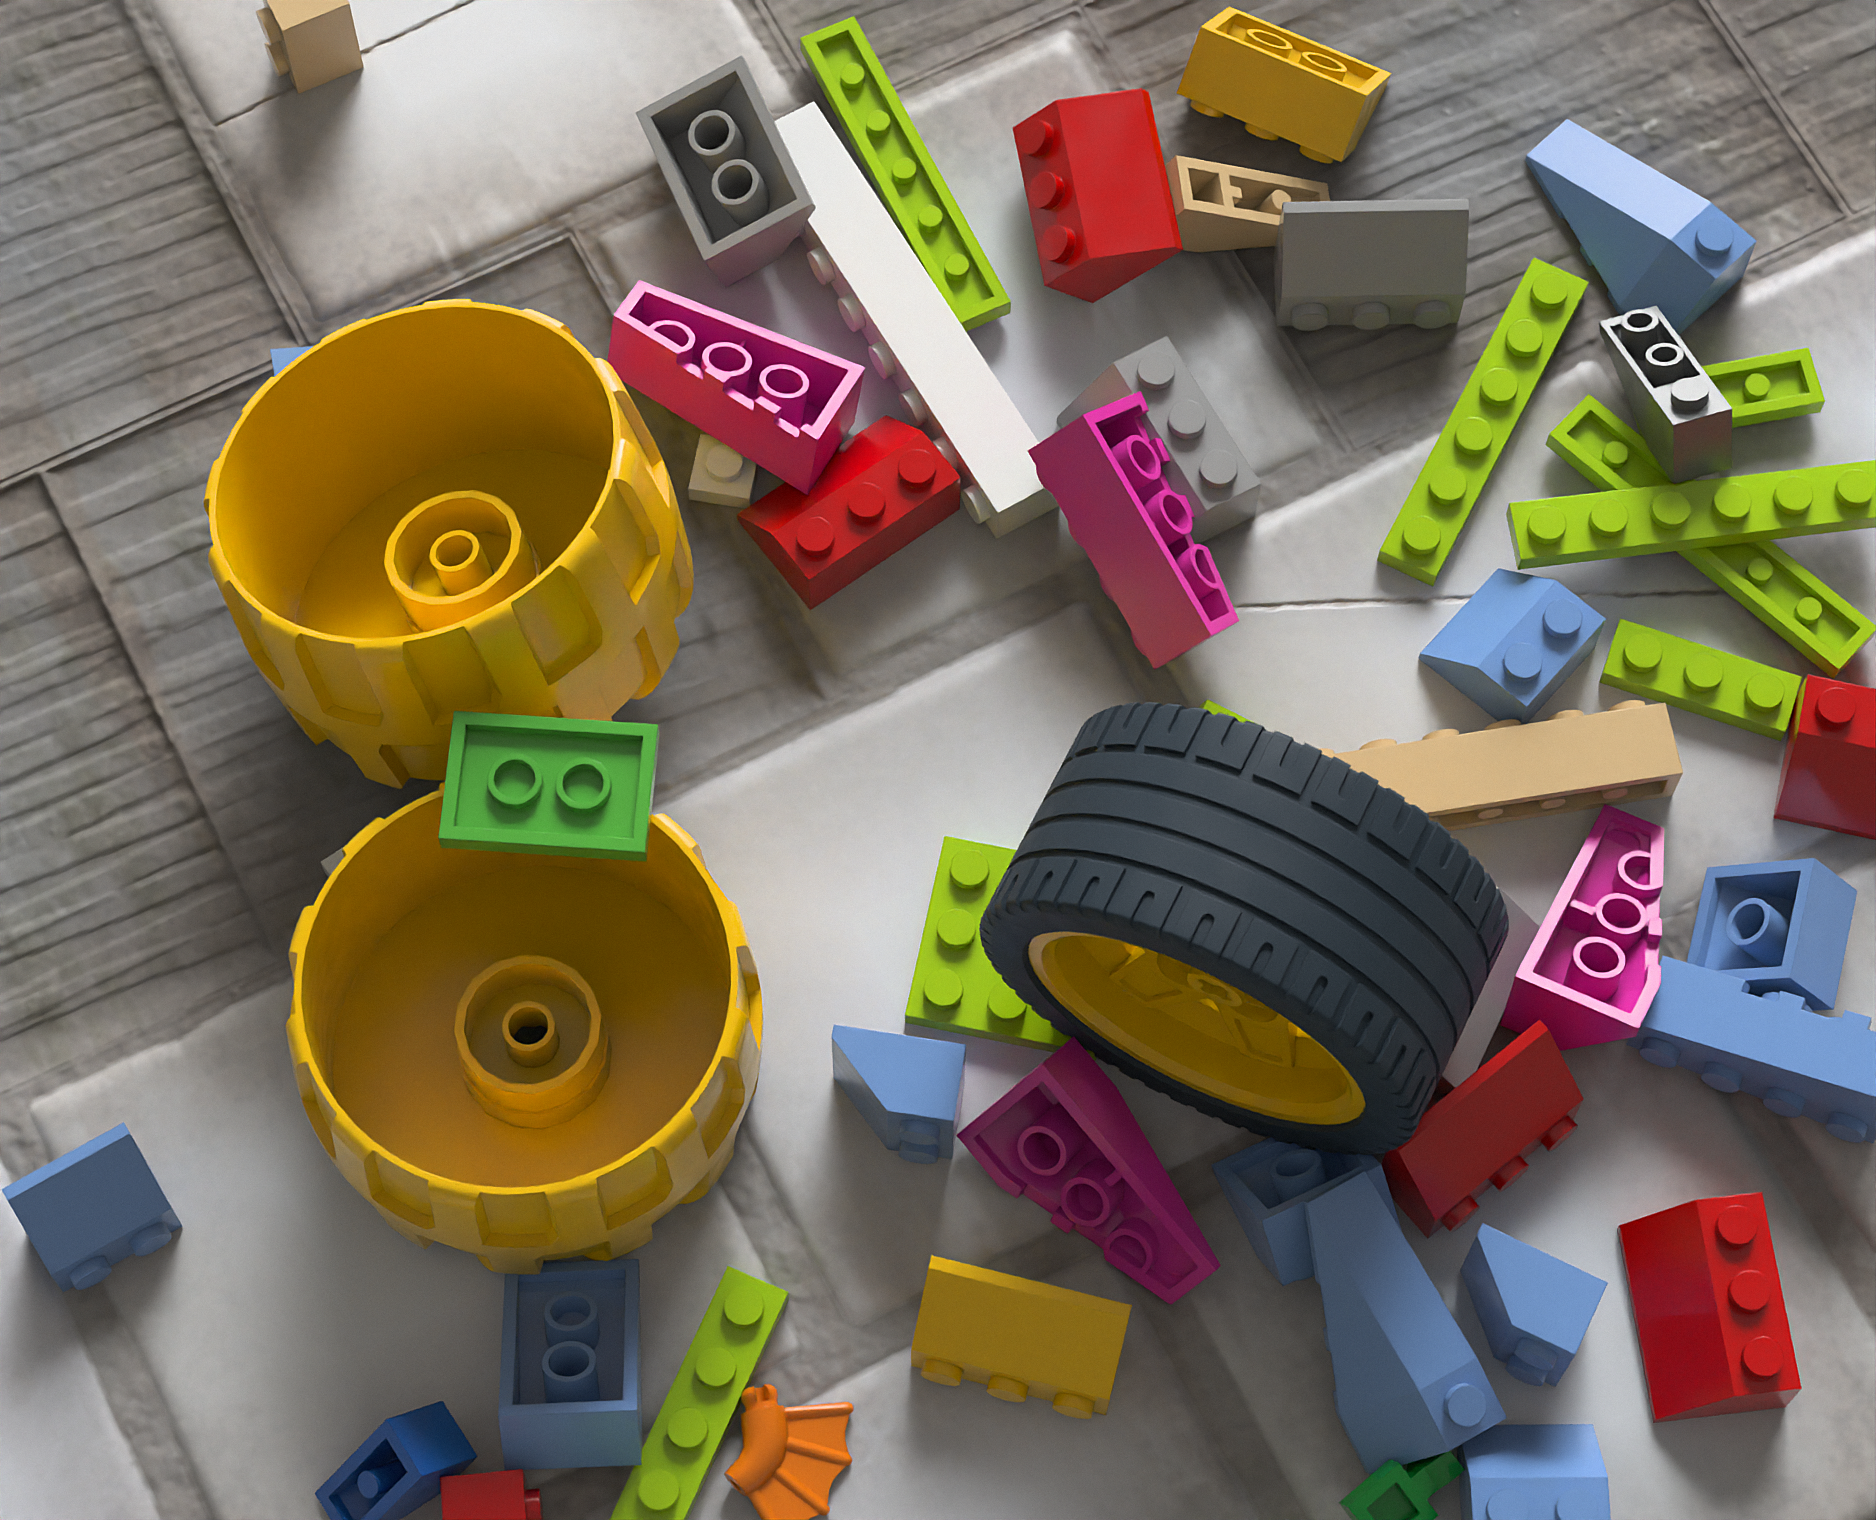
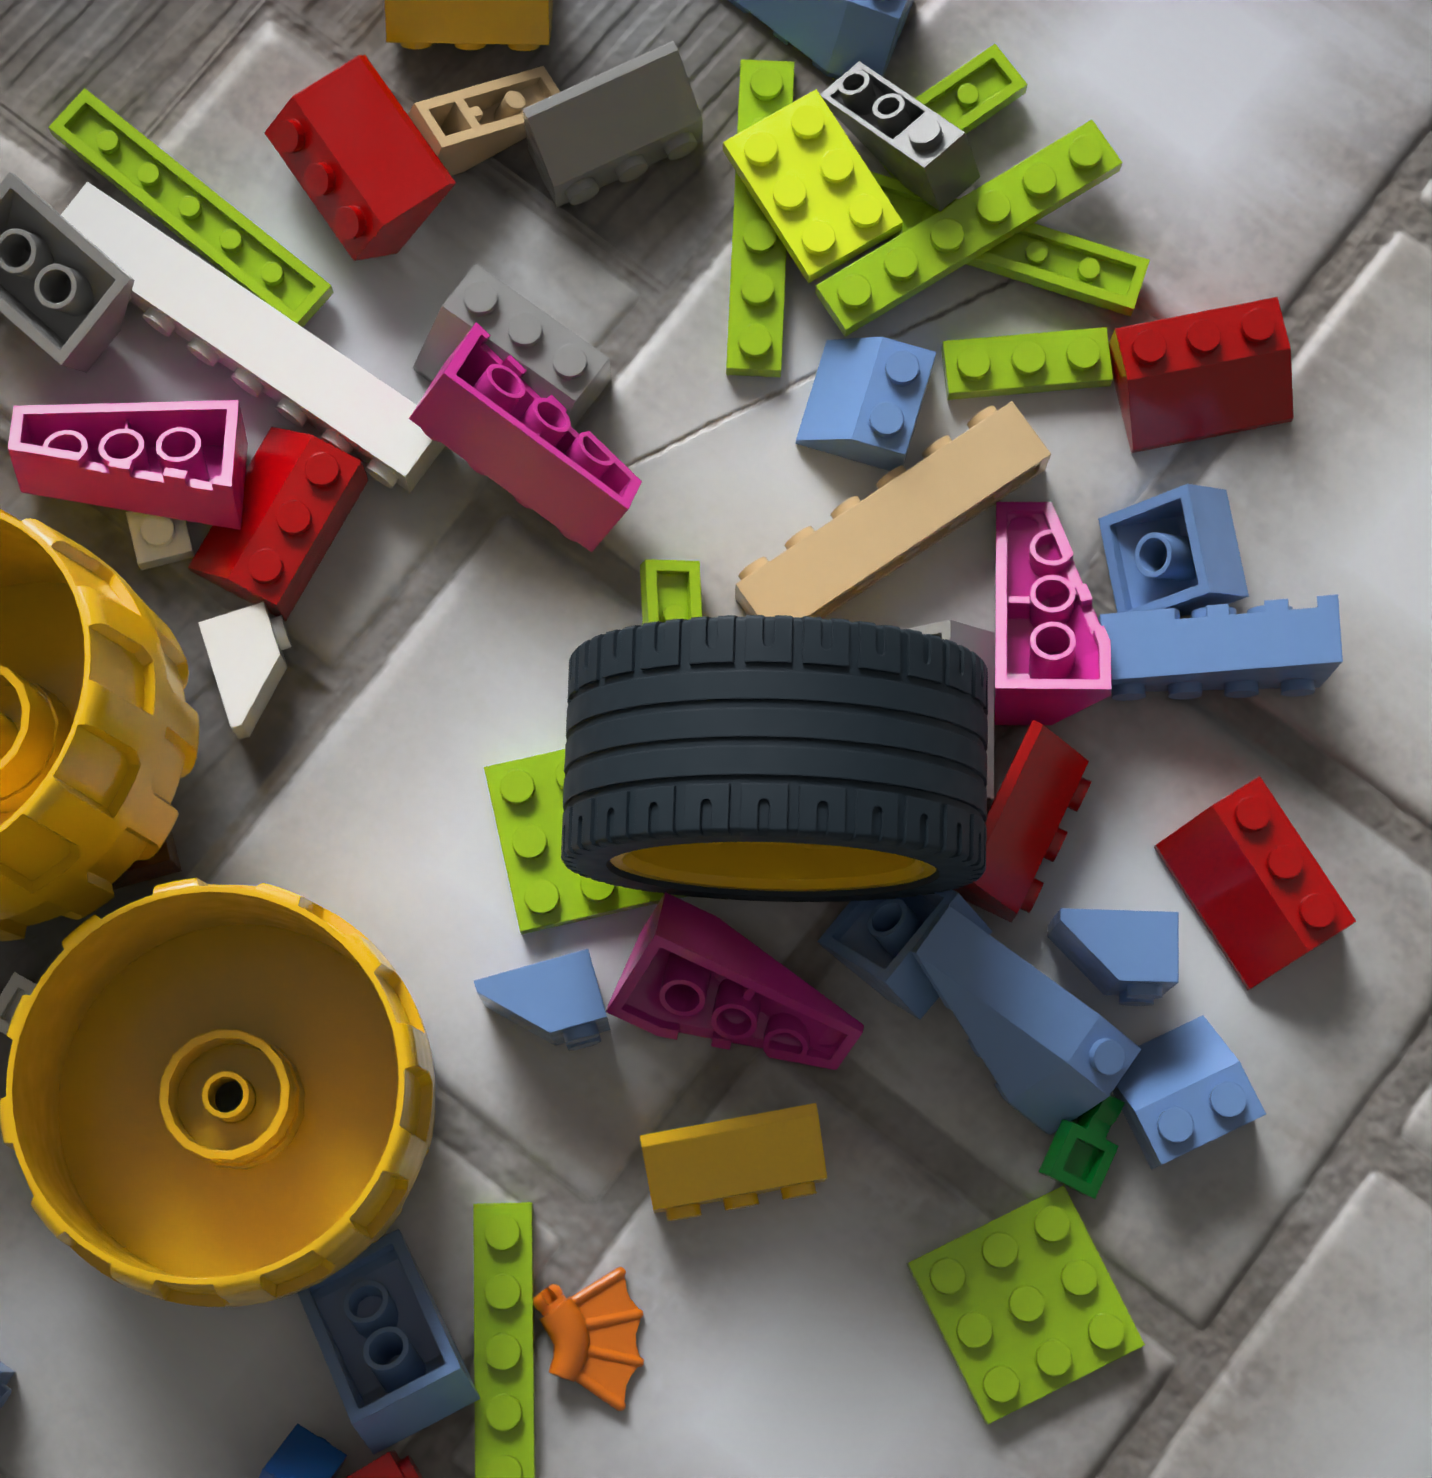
camera: 25 degrees left, 10 degrees up
(549, 786) = (156, 908): bright green plate -> none
(752, 628) = (246, 661): none -> white slope
(1551, 407) = (812, 186): none -> neon yellow plate

